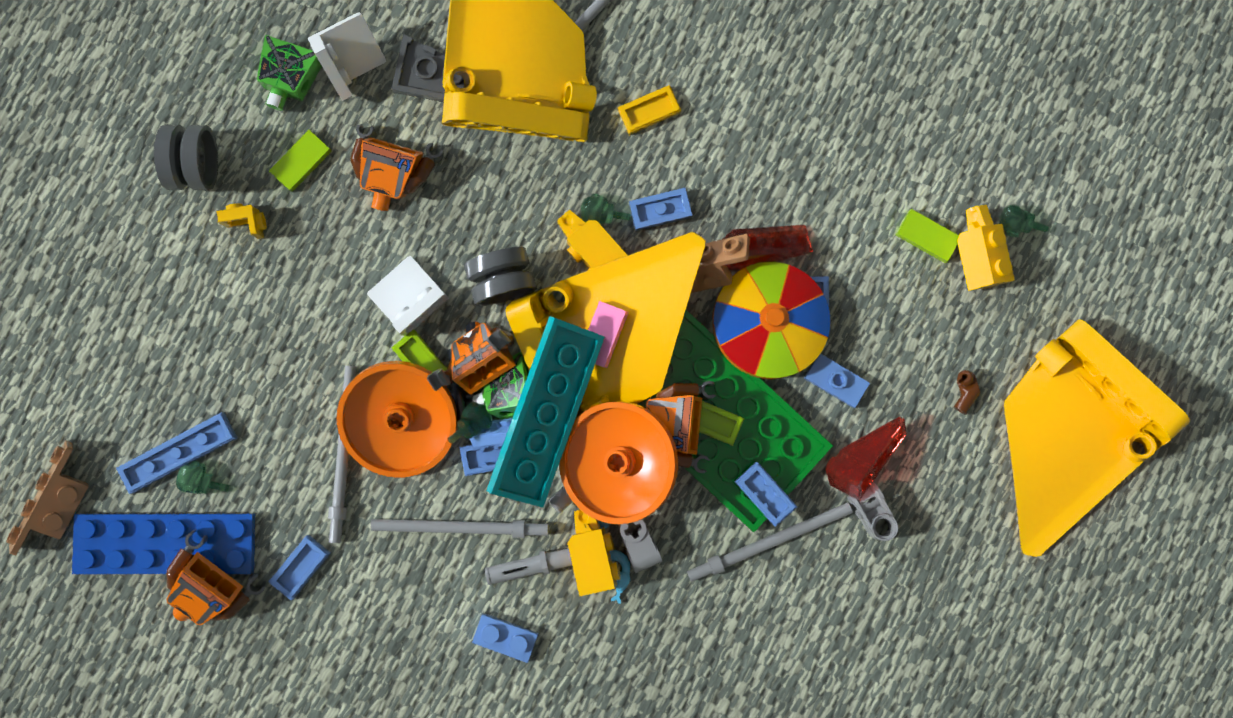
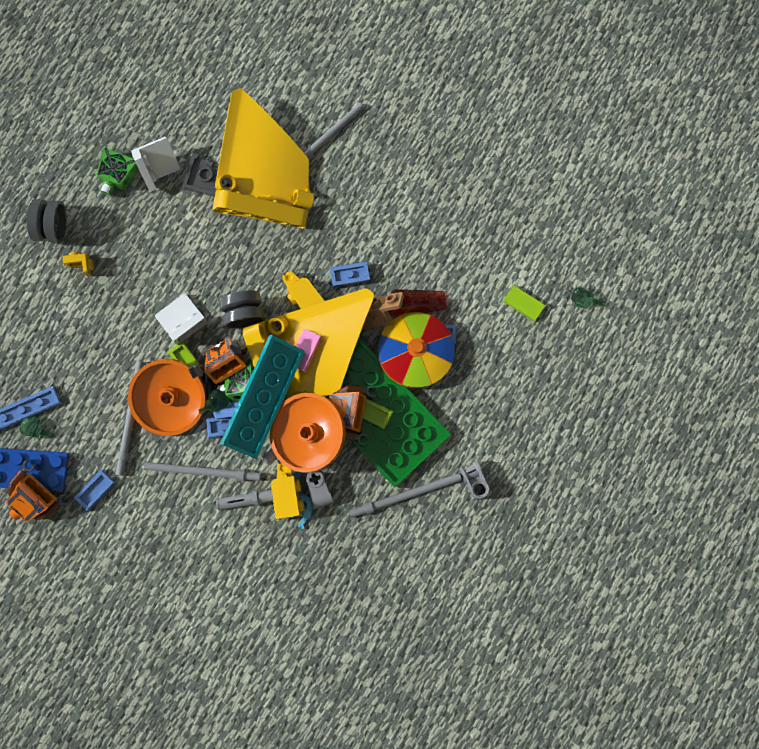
camera: 10 degrees right, 5 degrees down
(300, 160) = (119, 228): lime tile -> none
(389, 168) = (176, 236): torso -> none
(505, 638) = (225, 546): medium blue plate -> none
(597, 208) = (309, 271): clear green piece -> none
(649, 109) = (348, 210): yellow tile -> none
(765, 494) = (403, 461): medium blue plate -> none
(836, 380) = (457, 393): medium blue plate -> none
(863, 459) = (469, 445): clear red slope -> none
(969, 391) = (544, 405): reddish brown arm -> none
(984, 251) = (558, 315): yellow hinge -> none
(1076, 429) = (612, 437): yellow panel -> none

